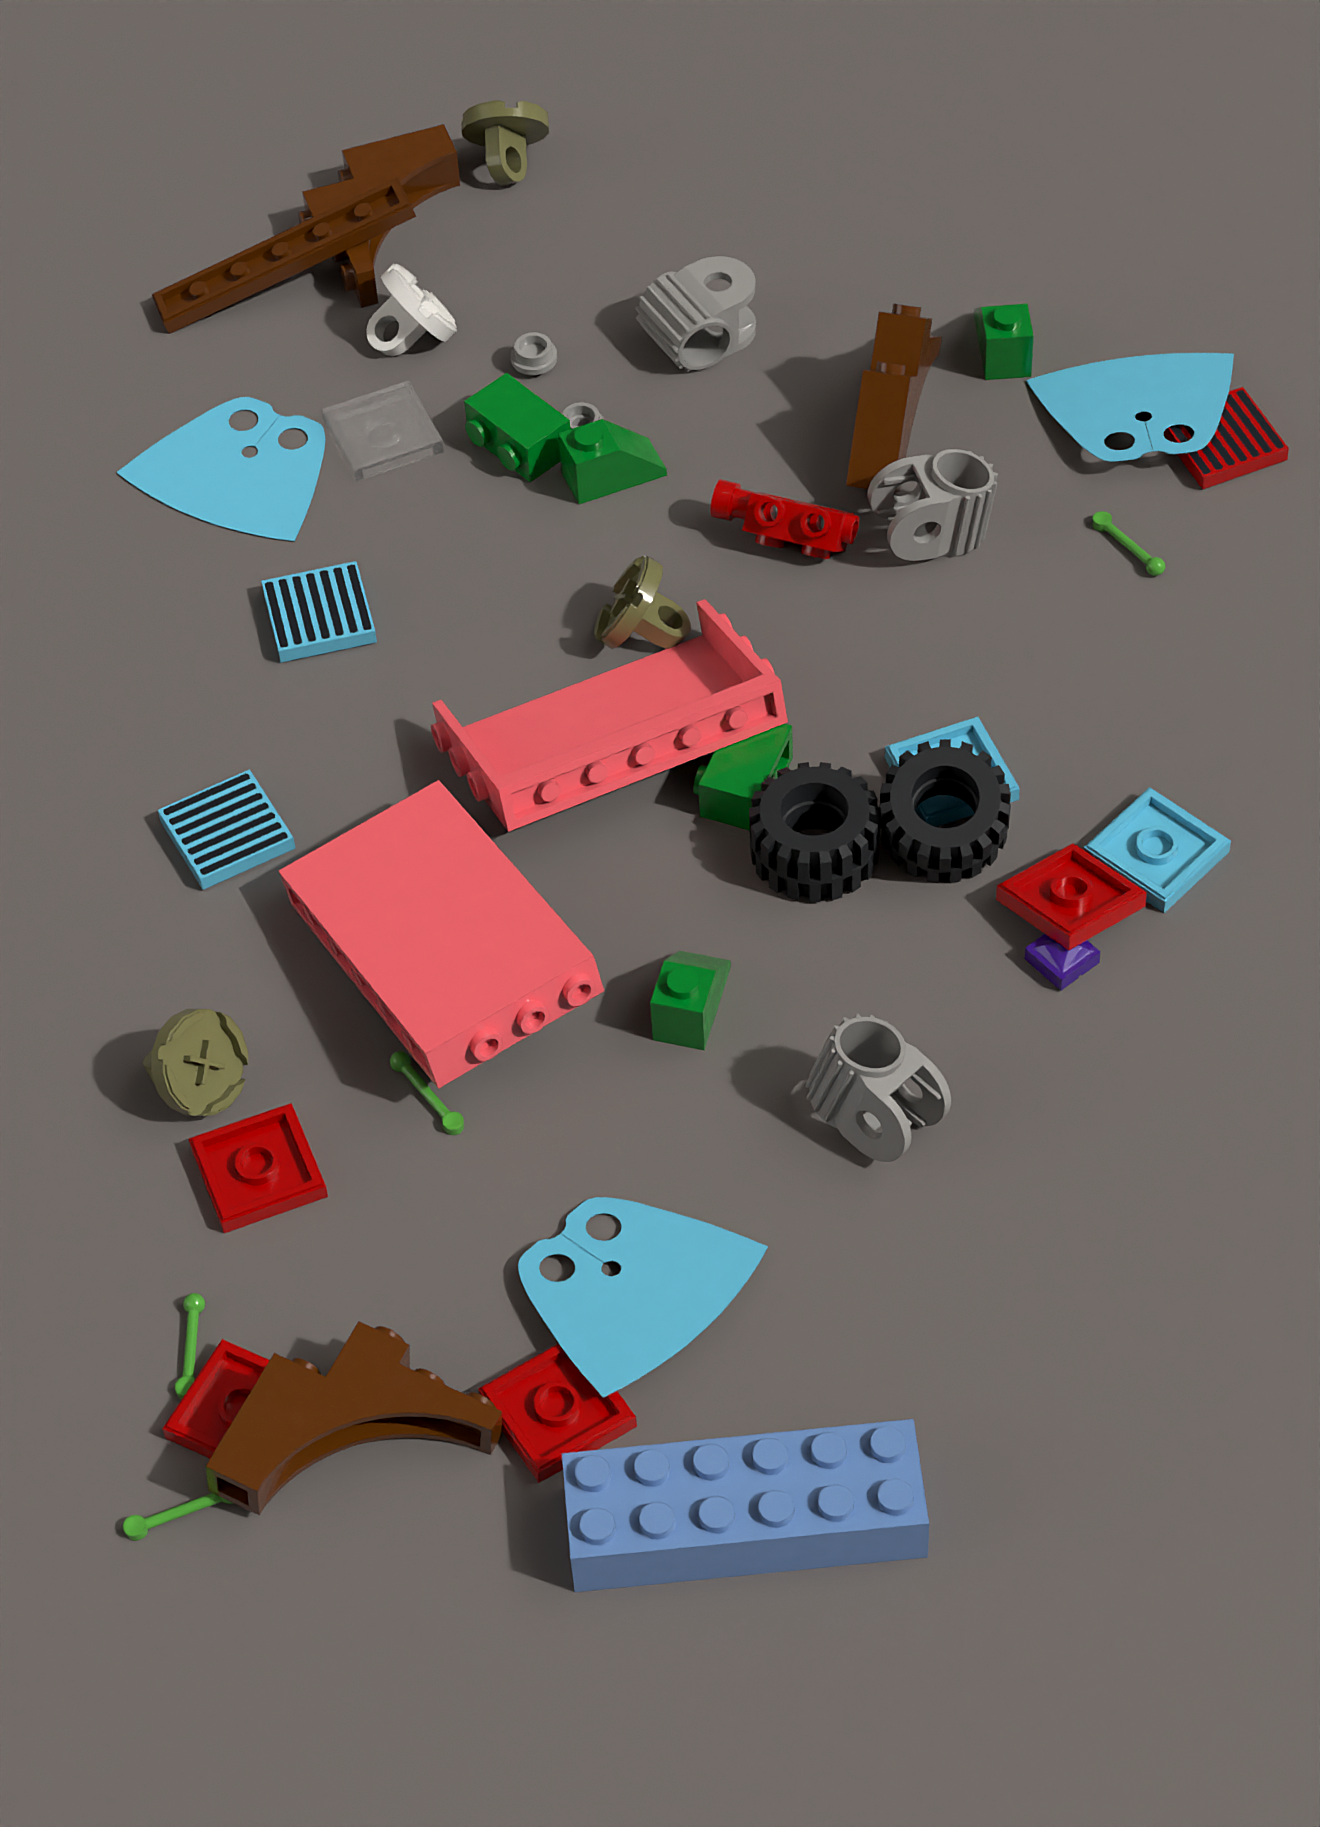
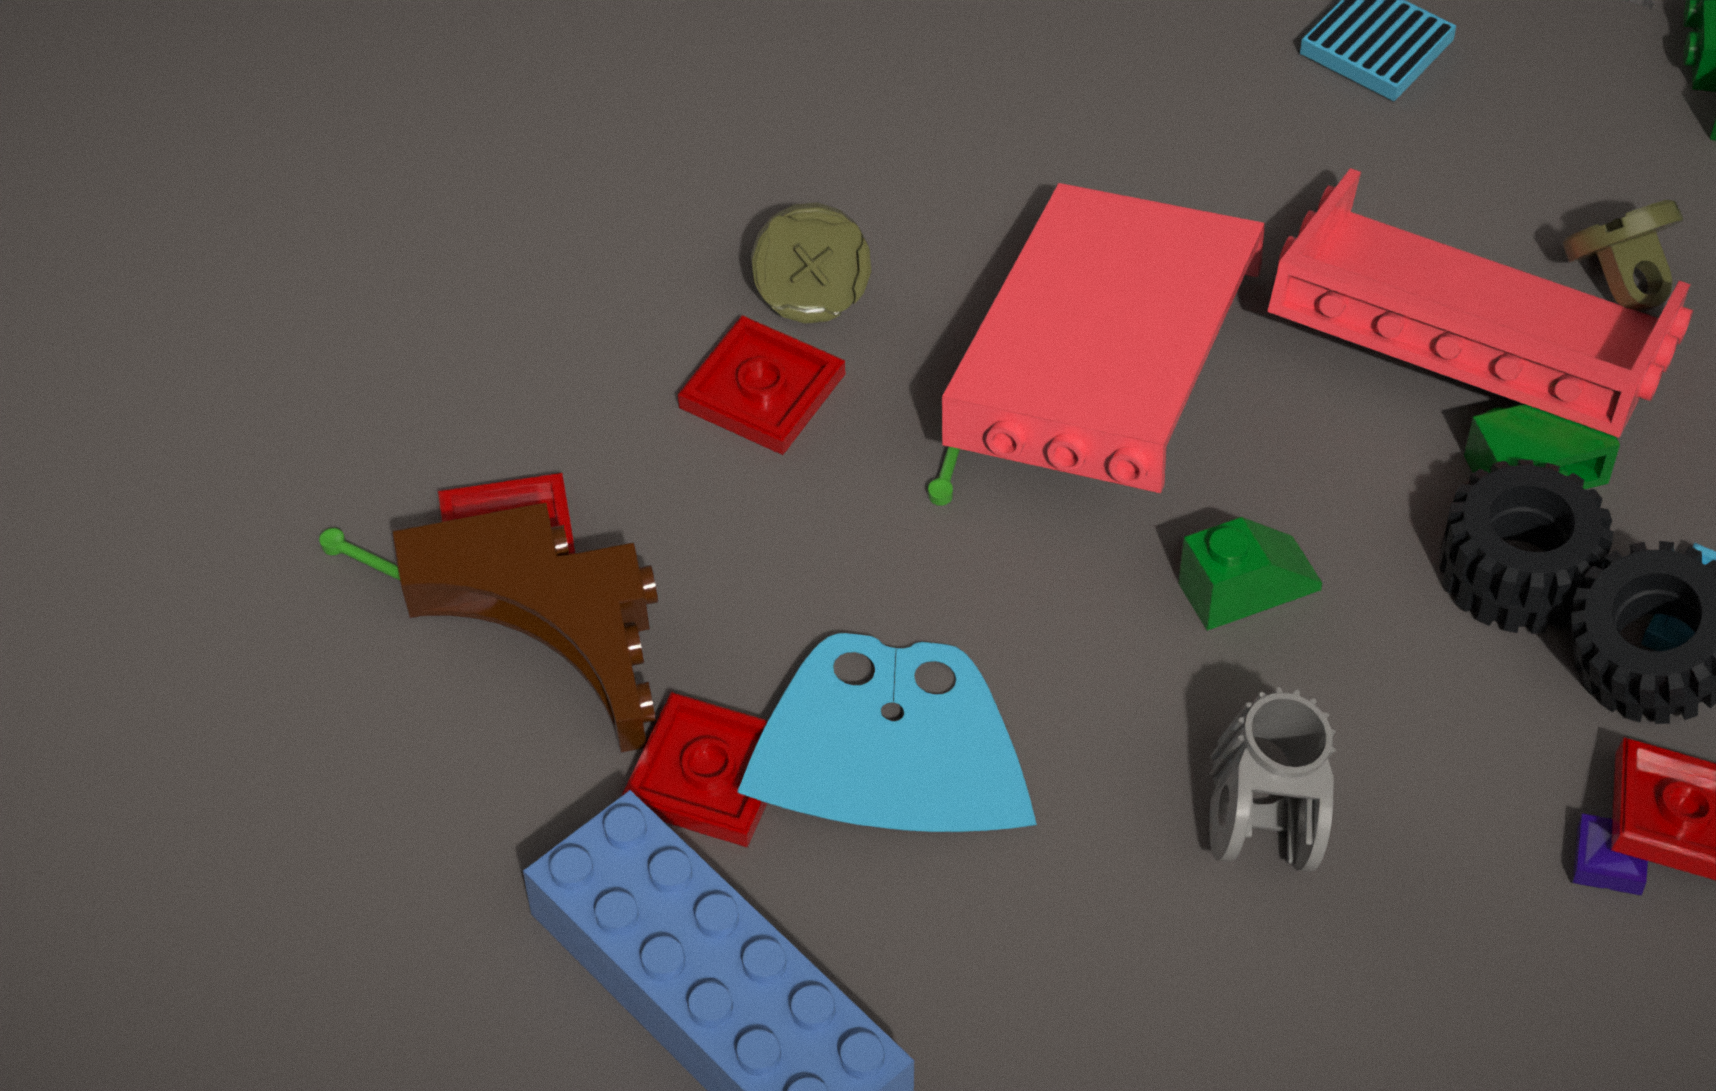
camera: 50 degrees right, 0 degrees up
(194, 1305) = (585, 434): bright green hinge -> none
(226, 829) = (1084, 132): tile -> none

